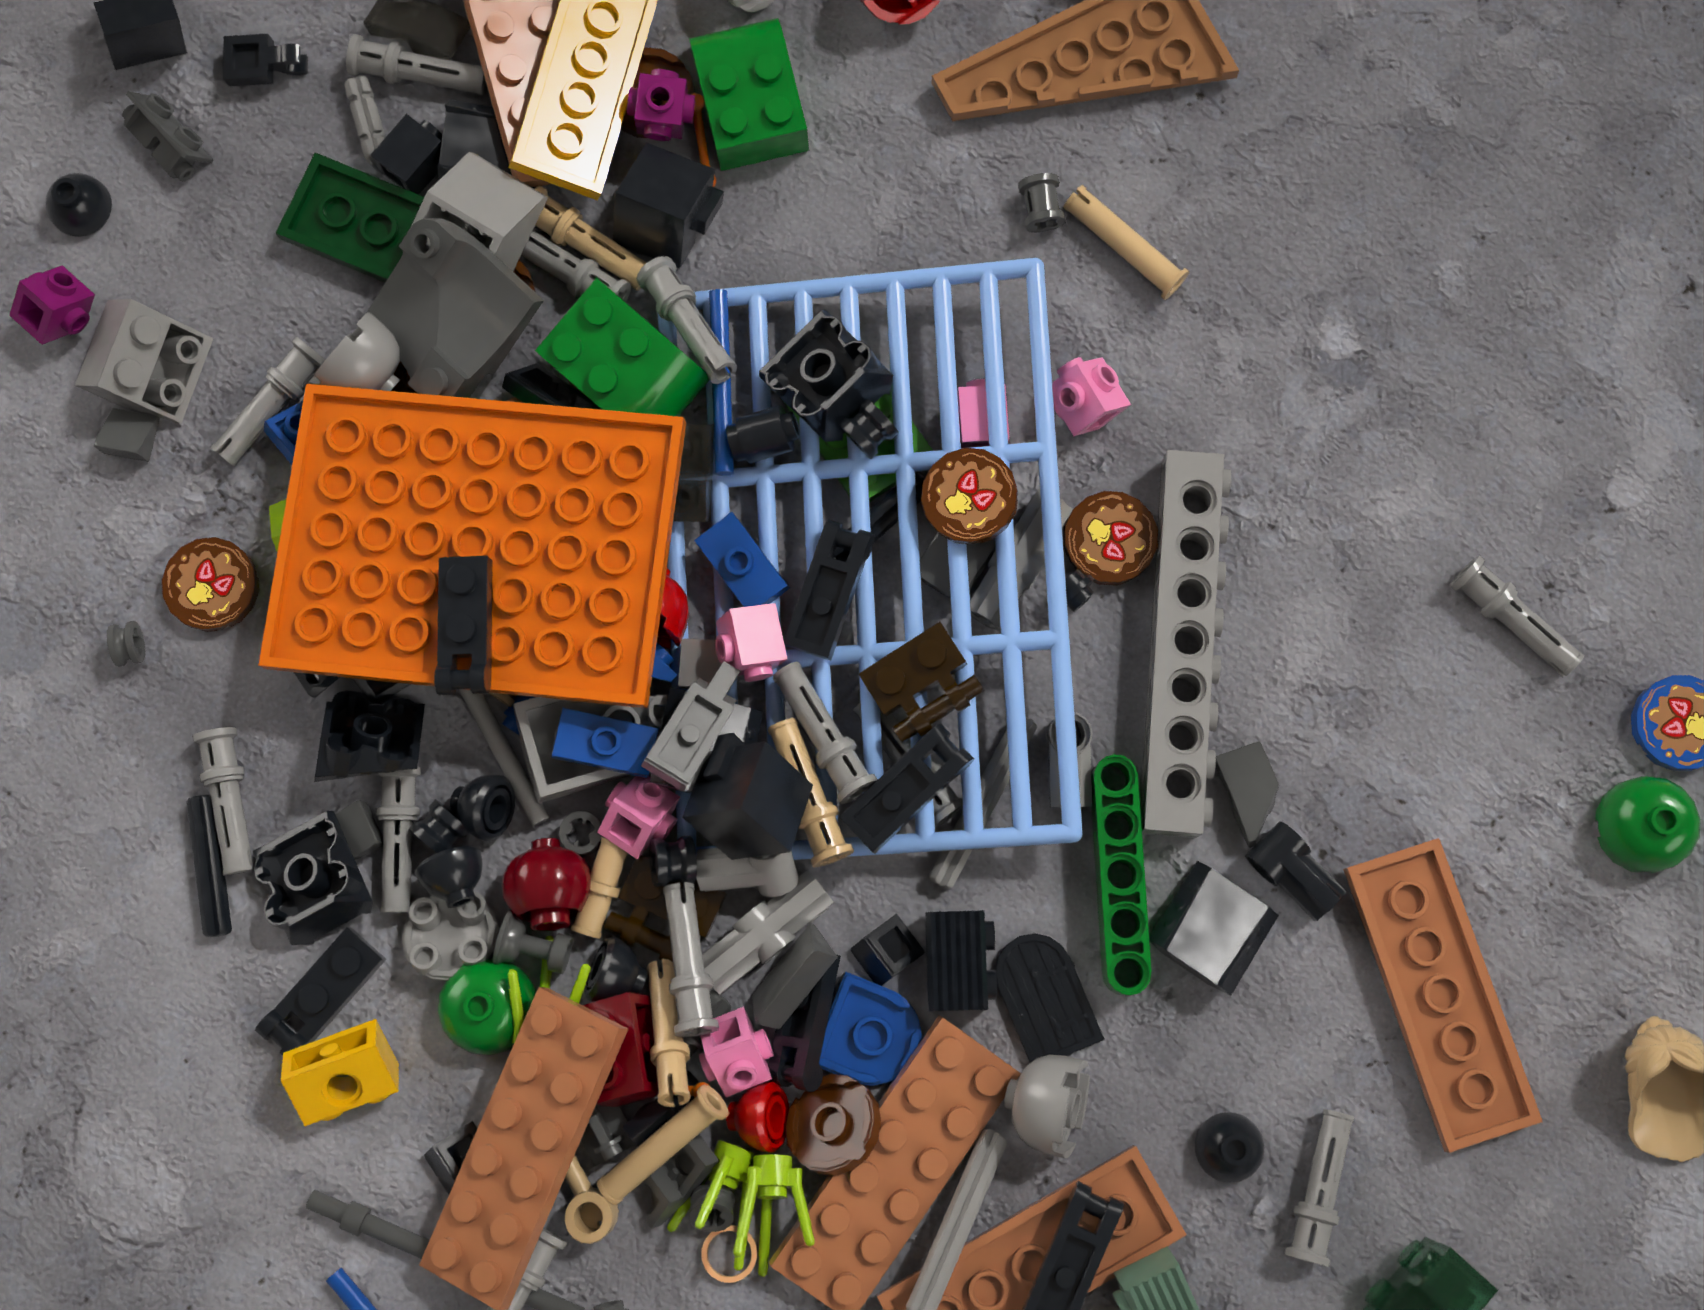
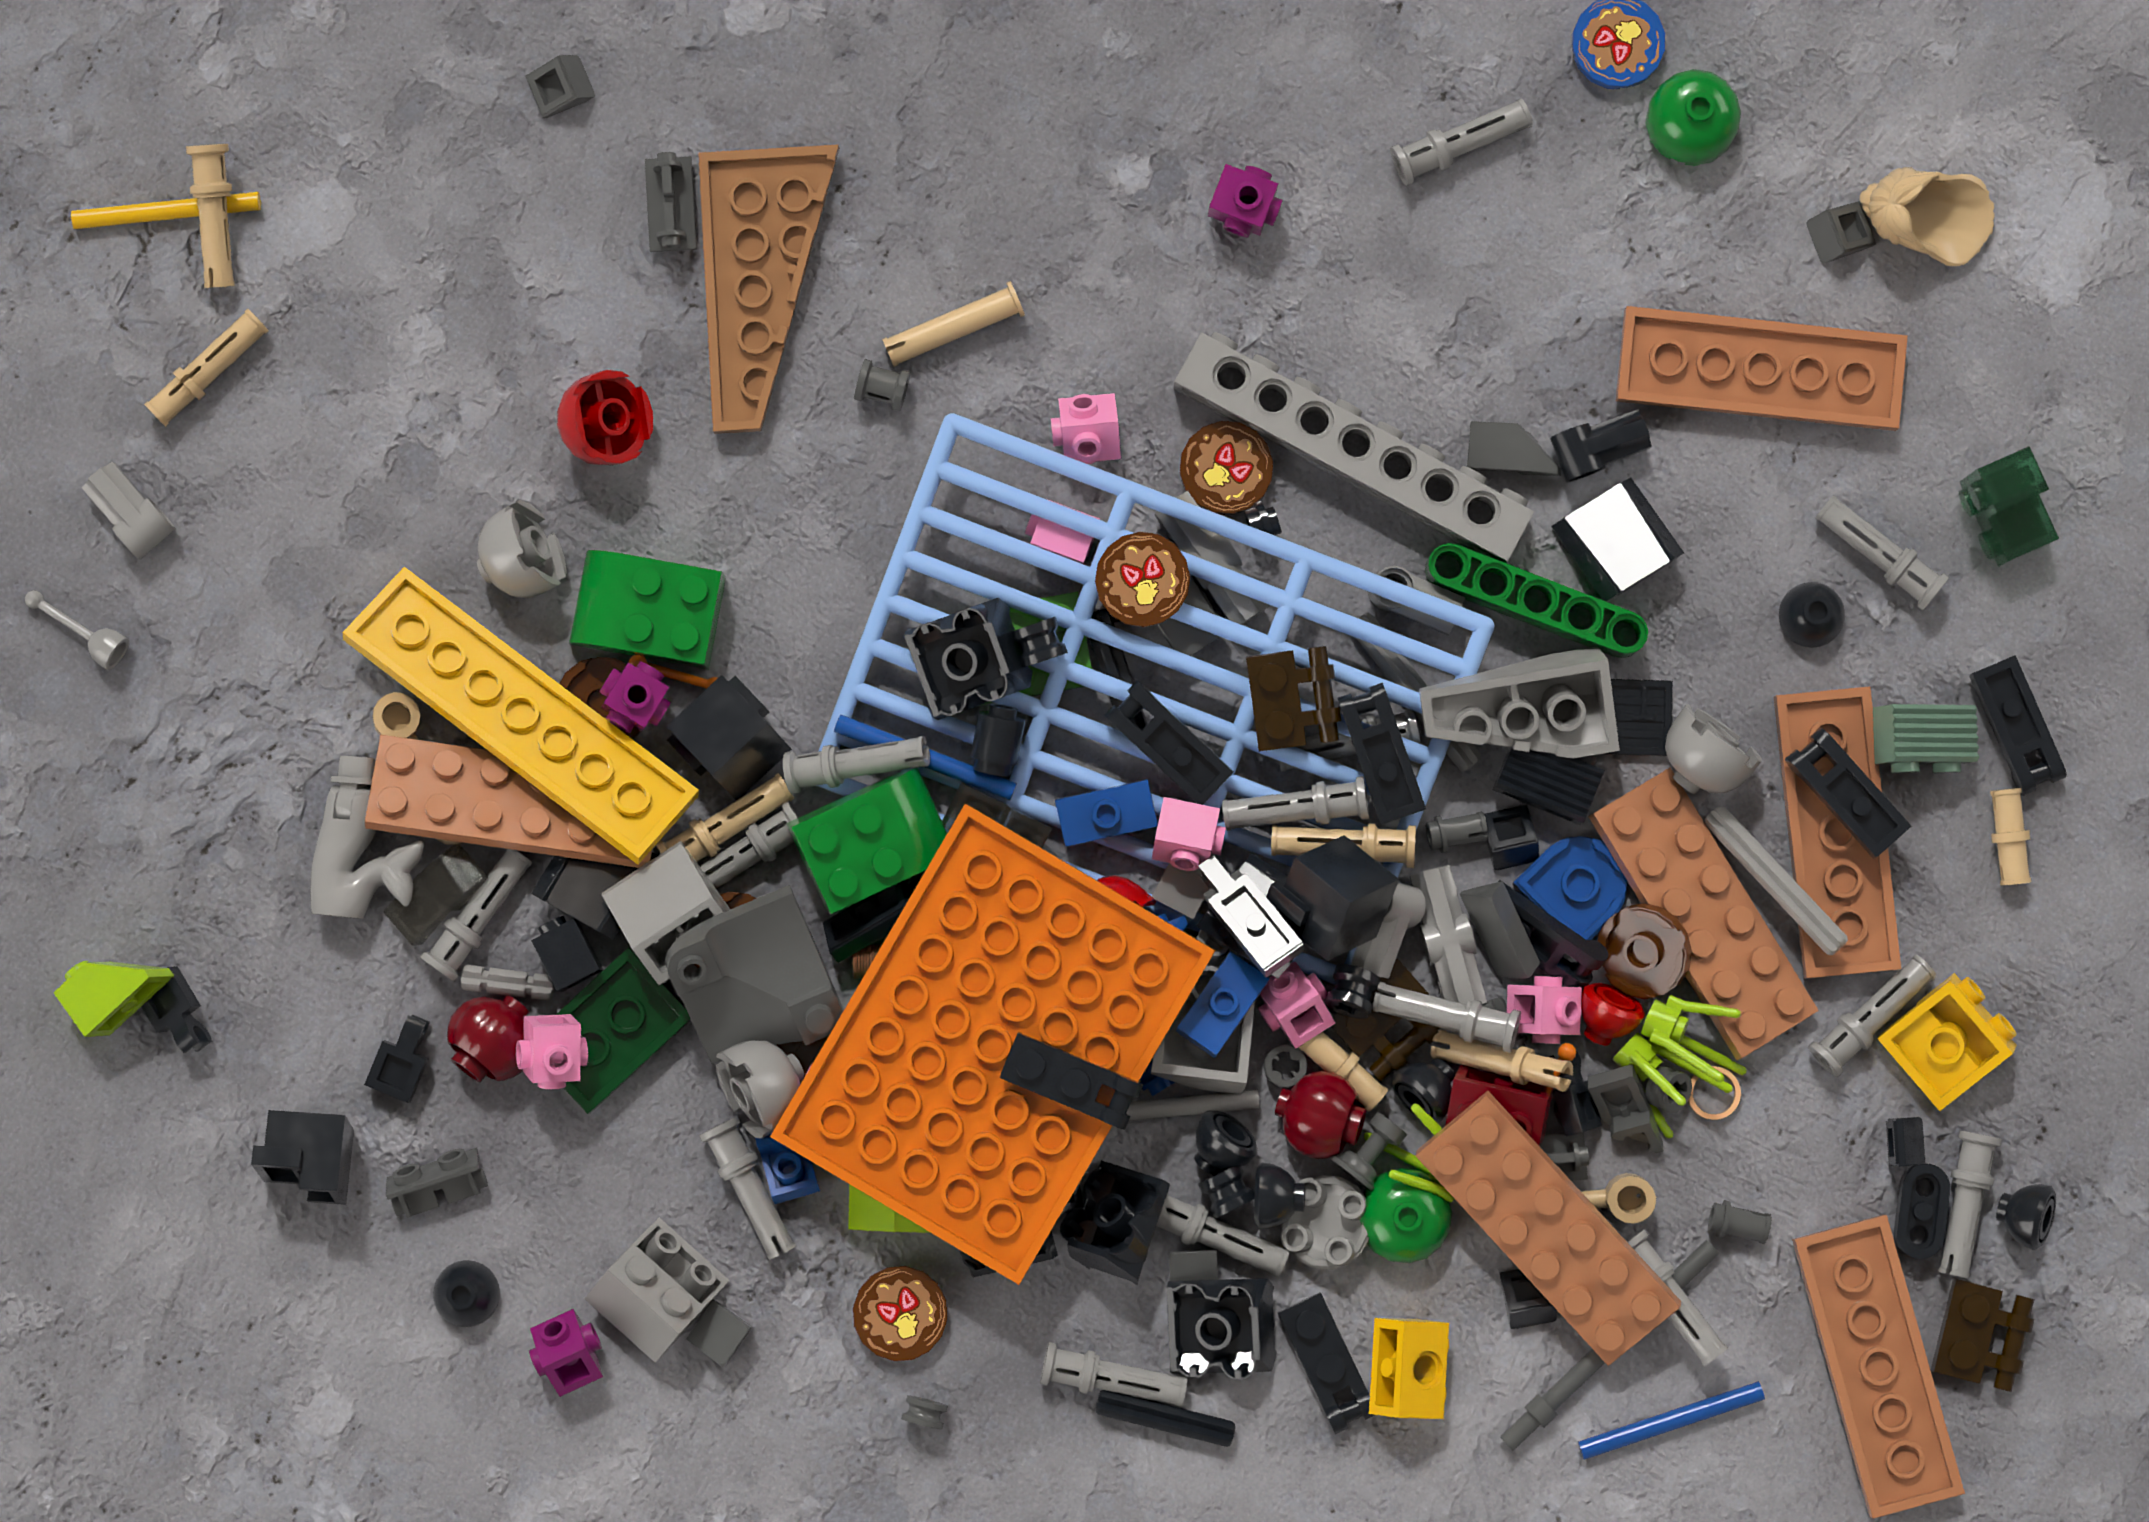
camera: 70 degrees left, 5 degrees up
(308, 123) = (486, 1037): none -> dark red plant
(311, 168) = (552, 1050): none -> bright pink brick
(663, 1144) = (1598, 1106): tan pin -> none
(869, 896) = (1456, 831): none -> dark grey pin
(1021, 918) = (1539, 705): none -> light grey wedge
(1364, 442) = (1245, 184): none -> magenta brick
(1608, 1013) = (1840, 232): none -> dark grey slope

